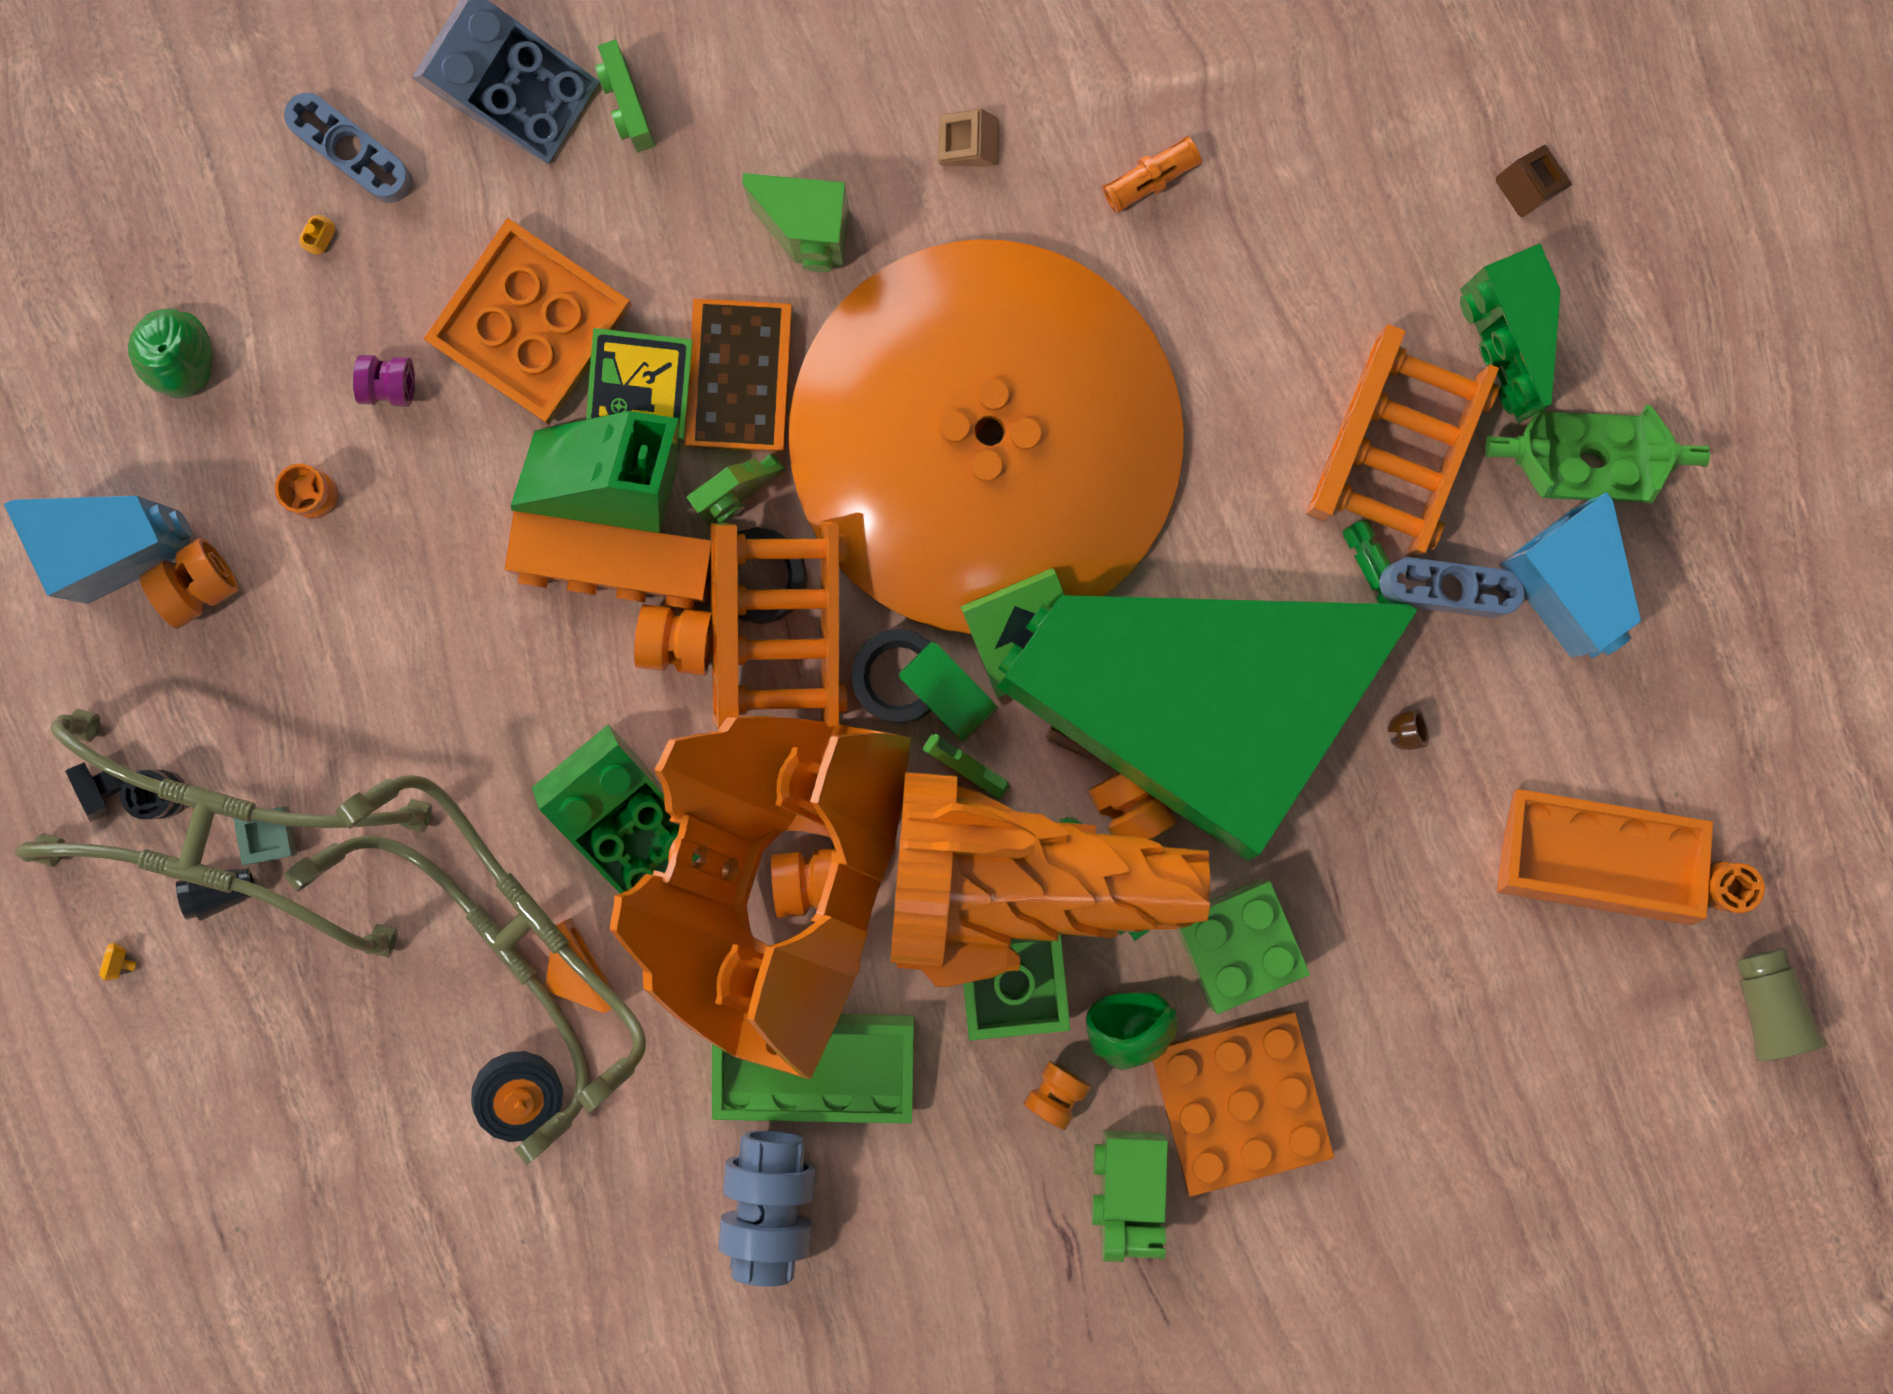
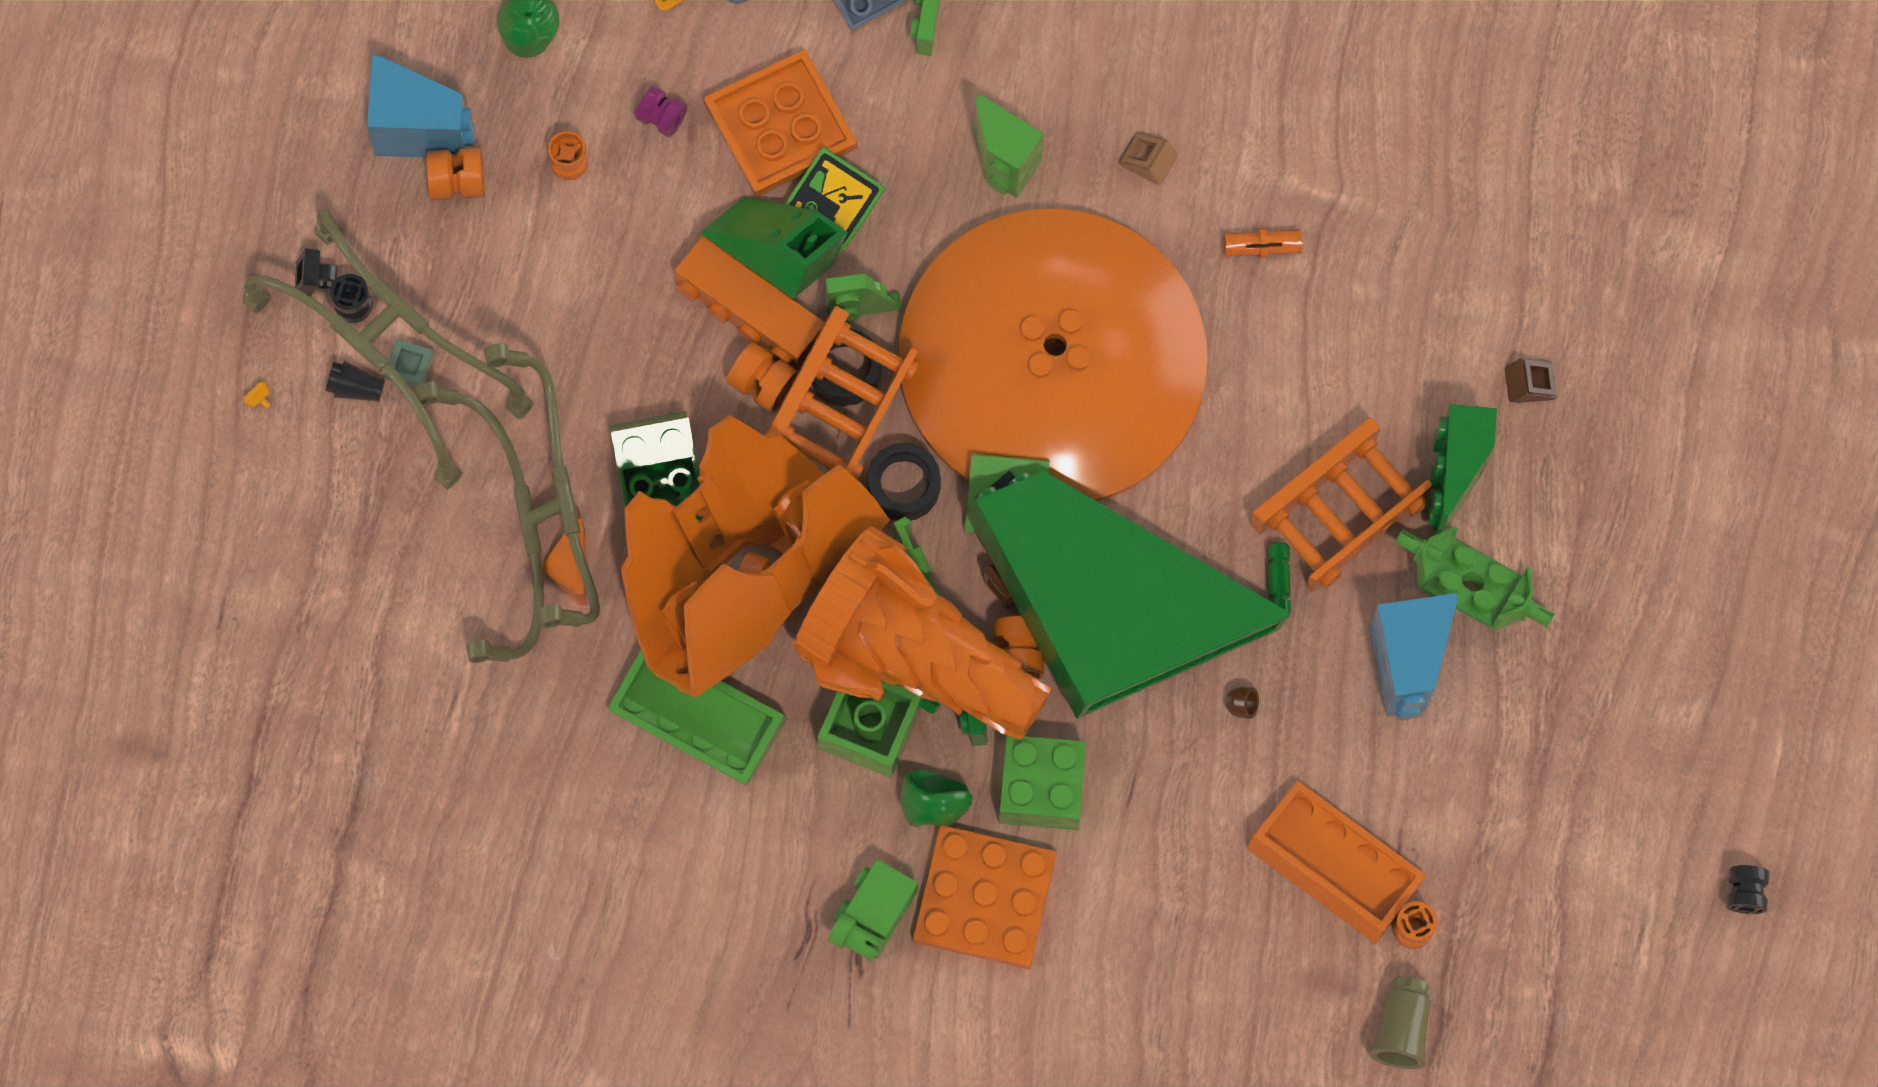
camera: 25 degrees right, 15 degrees down
(516, 1095) = (482, 616): black wheel -> none
(739, 375) = (904, 231): tile -> none
(765, 1230) = (605, 797): sand blue piece -> none
(948, 691) = (933, 508): green panel -> none
(1061, 1084) = (865, 814): orange wheel -> none
(1471, 578) = (1341, 644): sand blue beam -> none

